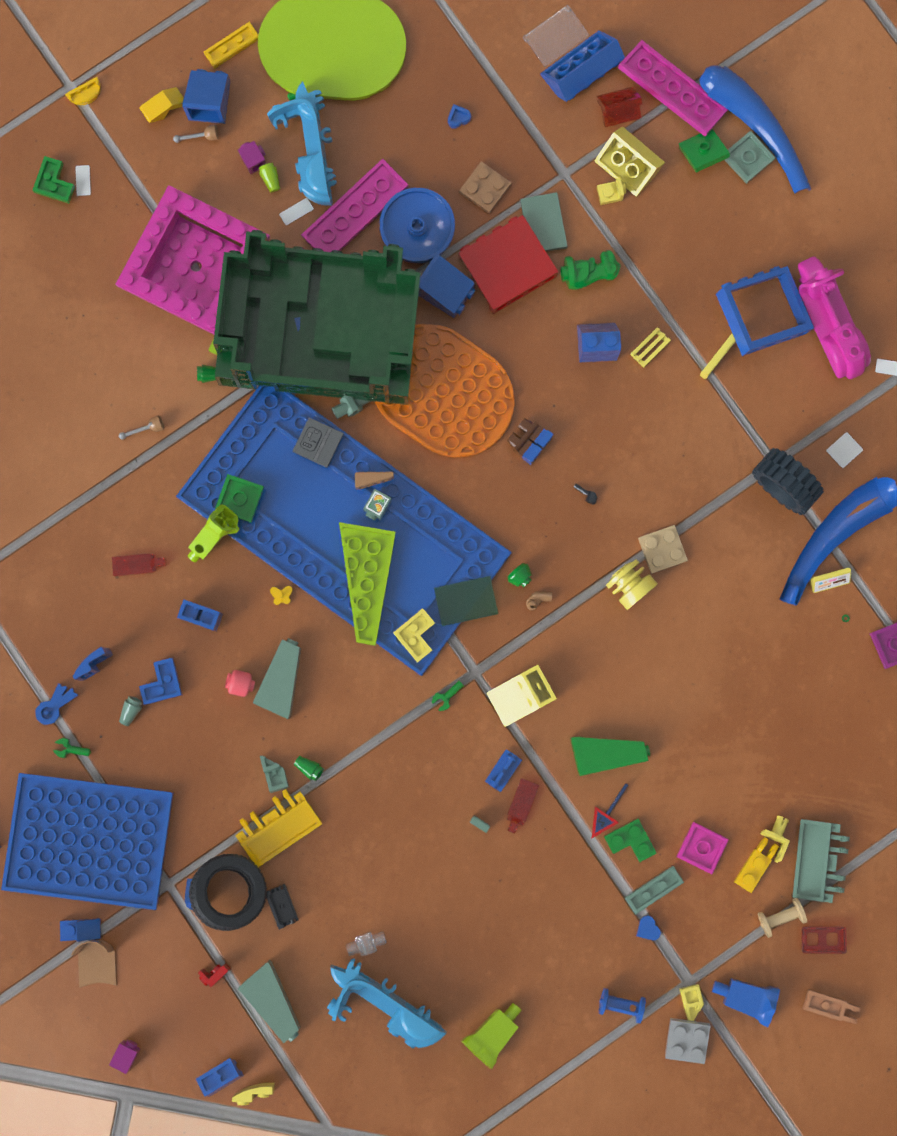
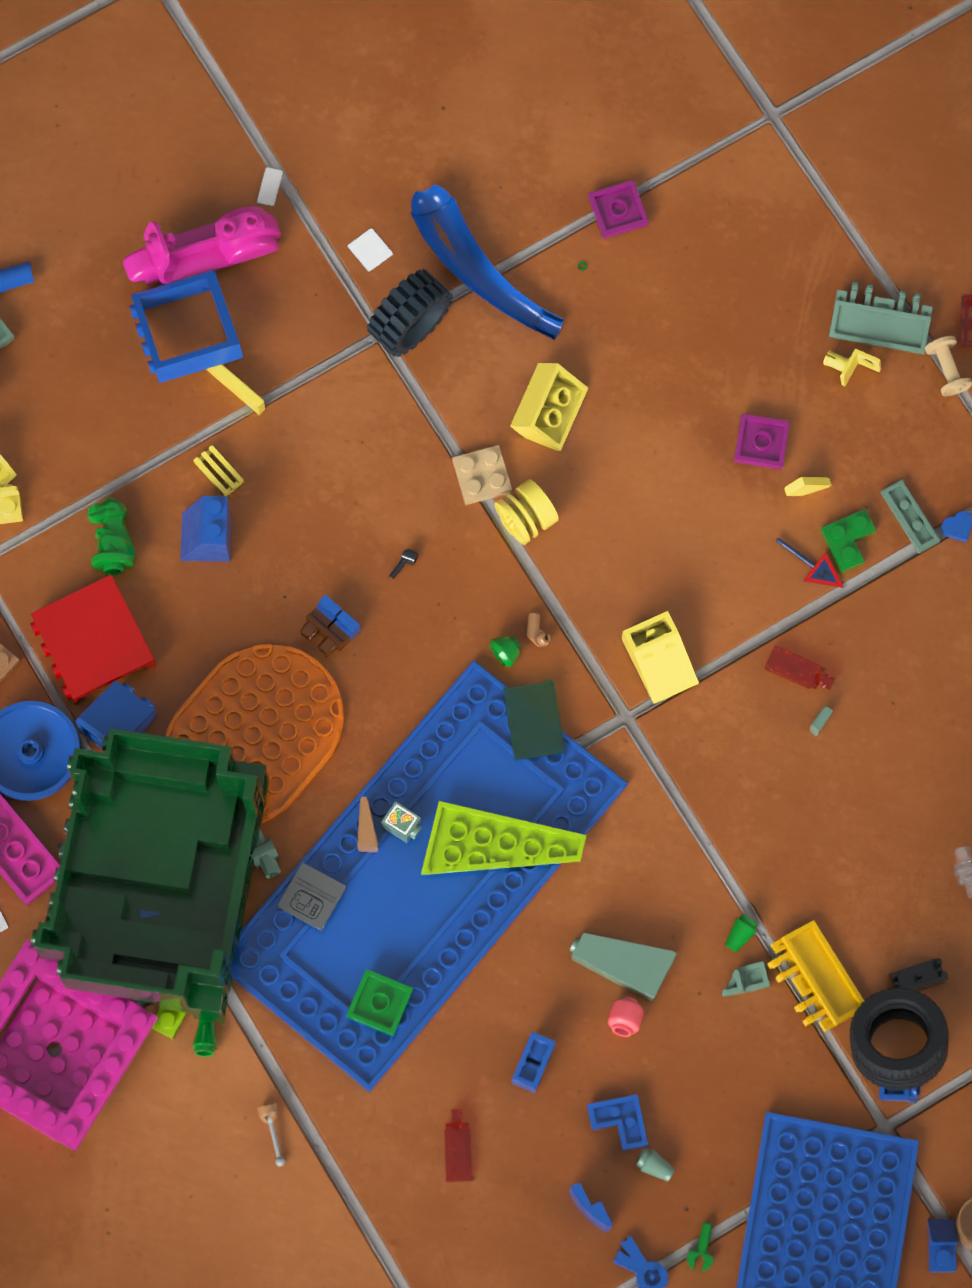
camera: 90 degrees left, 10 degrees down
(220, 523) = (426, 1036): lime piece -> none
(281, 596) = (512, 958): yellow piece -> none
(410, 635) = (575, 791): light yellow plate -> none
(449, 694) = (656, 754): green bar -> none
(503, 770) = (753, 688): blue hinge -> none
(545, 219) = (36, 588): sand green tile -> none
(599, 755) = (739, 565): green slope -> none
(672, 806) = (807, 485): none -> light yellow tile
(702, 848) = (860, 455): dark pink tile -> none
(706, 768) = (761, 441): none -> magenta plate
(723, 598) = (549, 406): none -> light yellow slope
(755, 866) = (884, 394): yellow hinge -> none
(830, 580) = (533, 278): slope -> none

